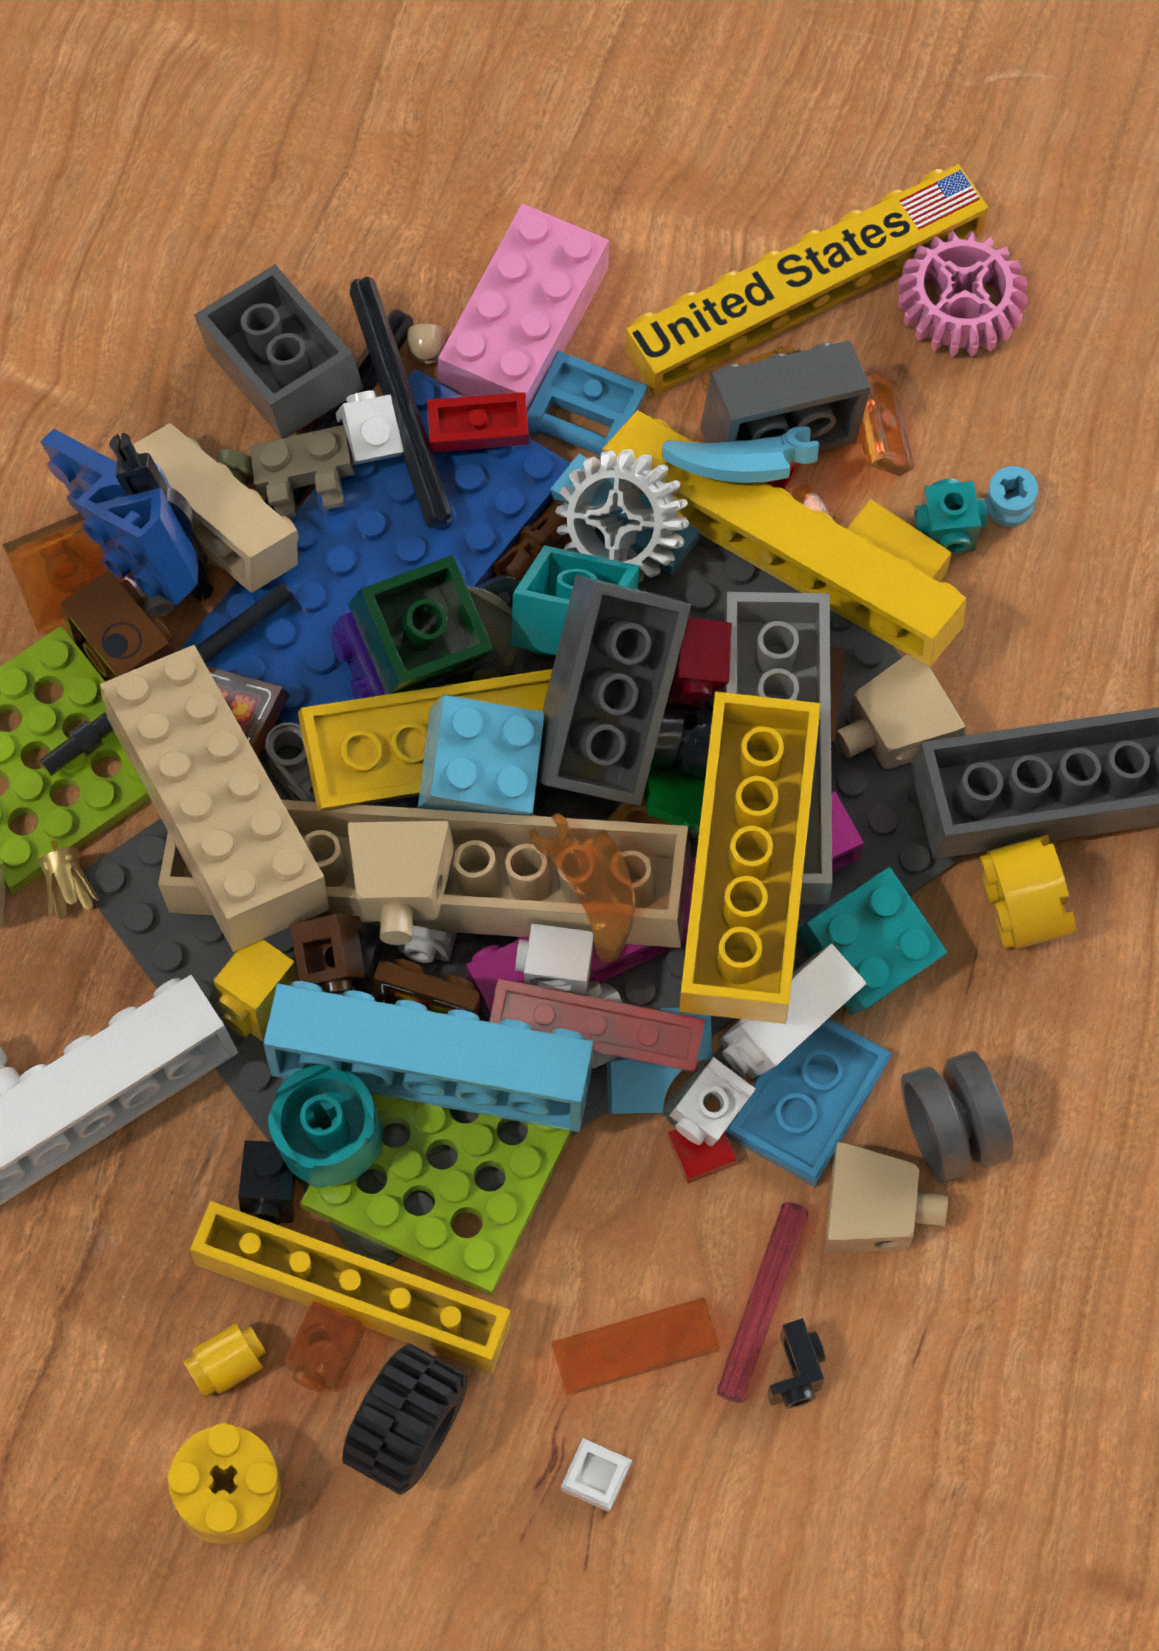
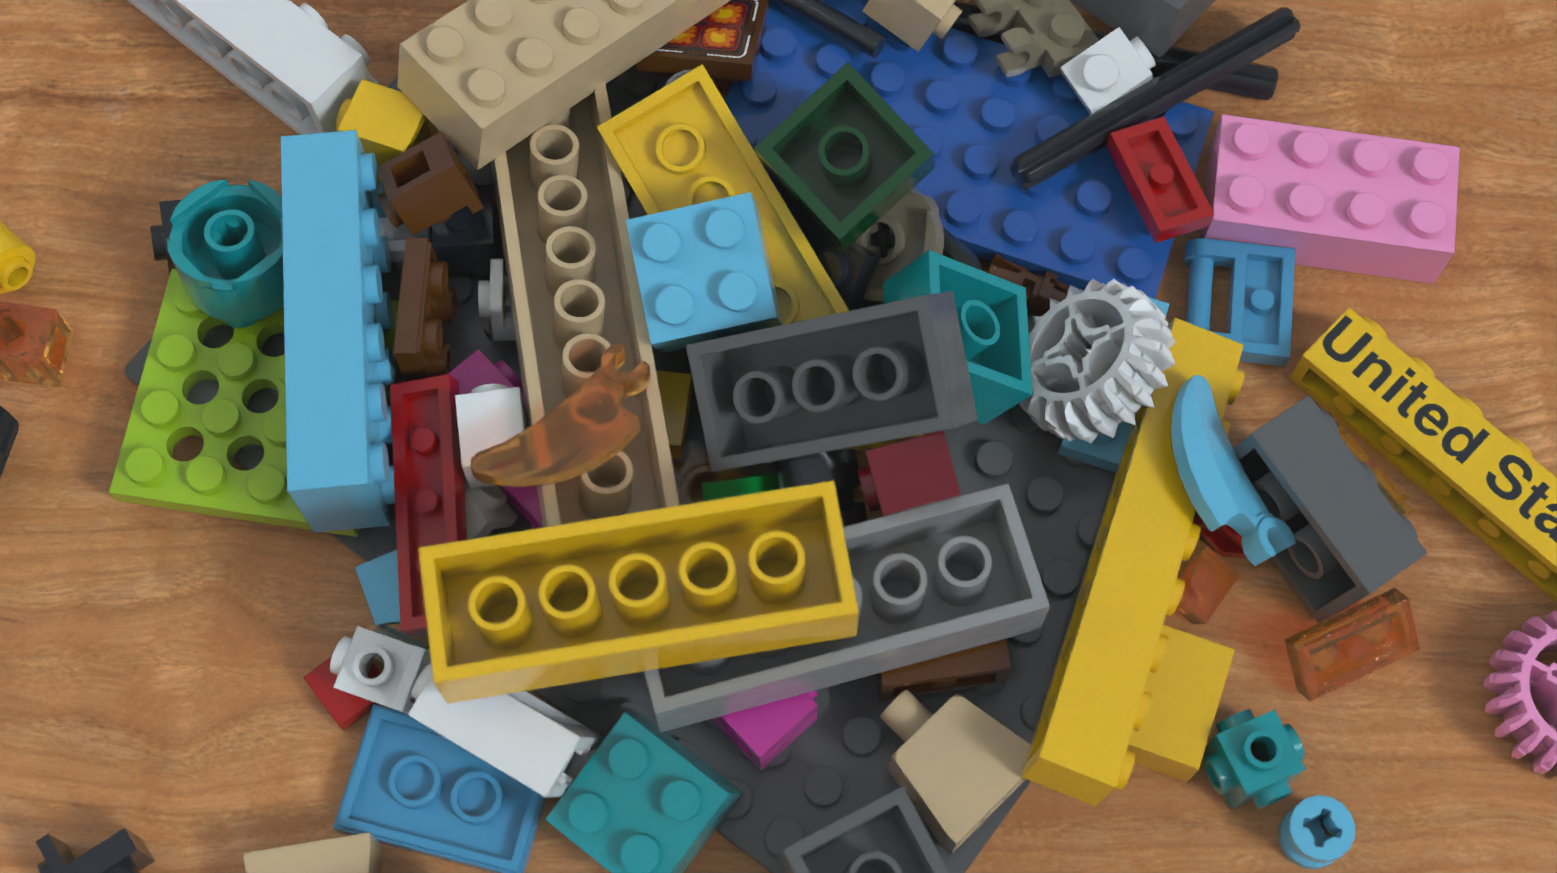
camera: 75 degrees right, 0 degrees up
(352, 1285) = (83, 351): yellow brick -> none
(400, 873) = (525, 219): tan torso -> none
(426, 342) = (1251, 104): tan hinge -> none
(635, 1346) = (94, 677): clear orange tile -> none
(762, 1302) = (173, 805): clear pink axle -> none

